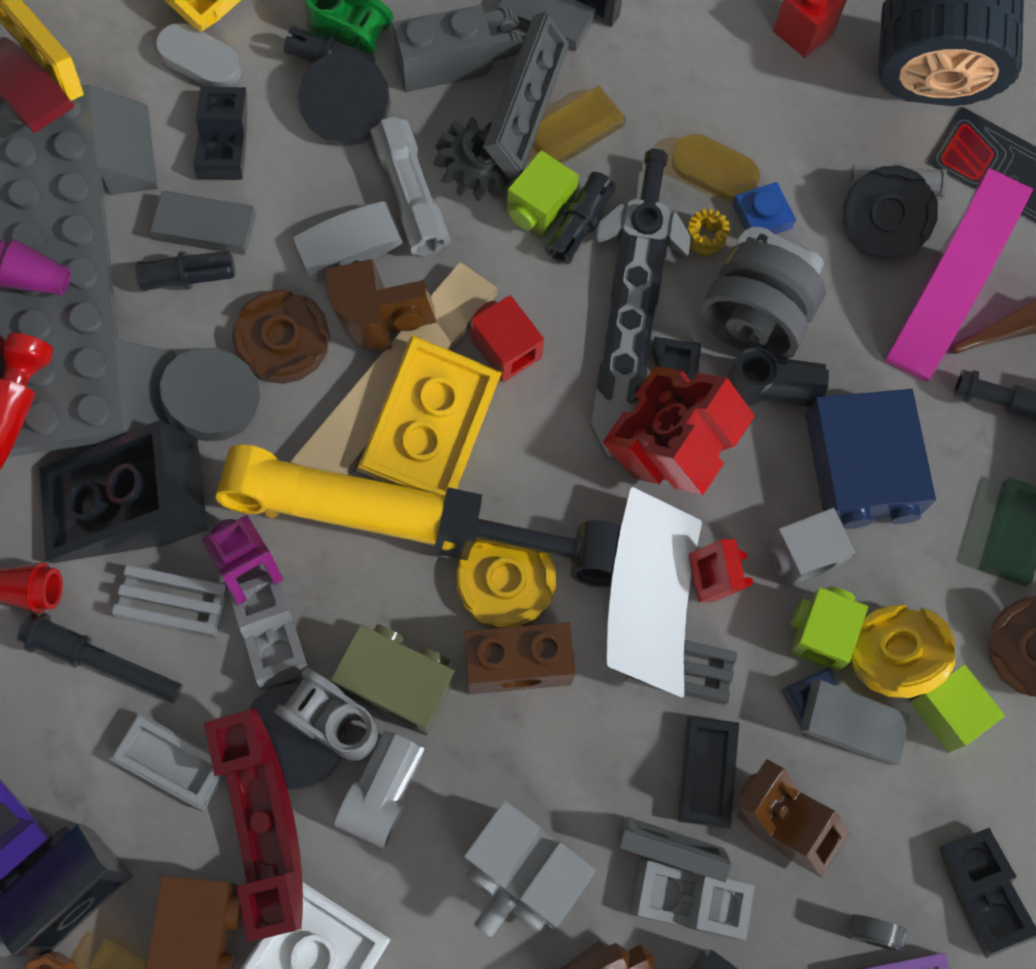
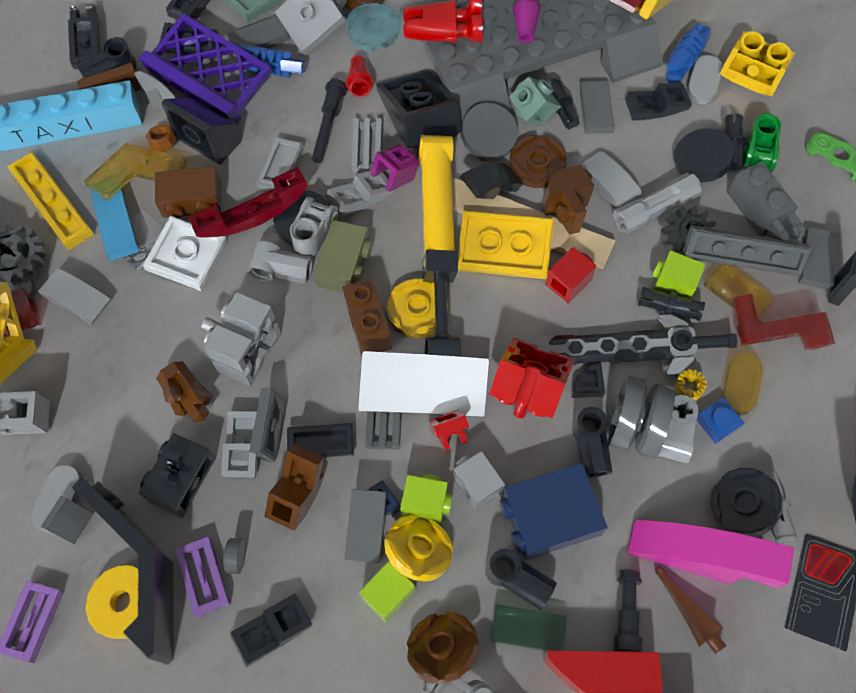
camera: 85 degrees right, 5 degrees down
(142, 62) = (687, 52): none -> blue hinge
(173, 308) = (534, 101): none -> sand green brick
(312, 411) = (490, 179): none -> black slope
(657, 58) = (813, 328): none -> clear red beam
(956, 524) = (523, 581): none -> black piece

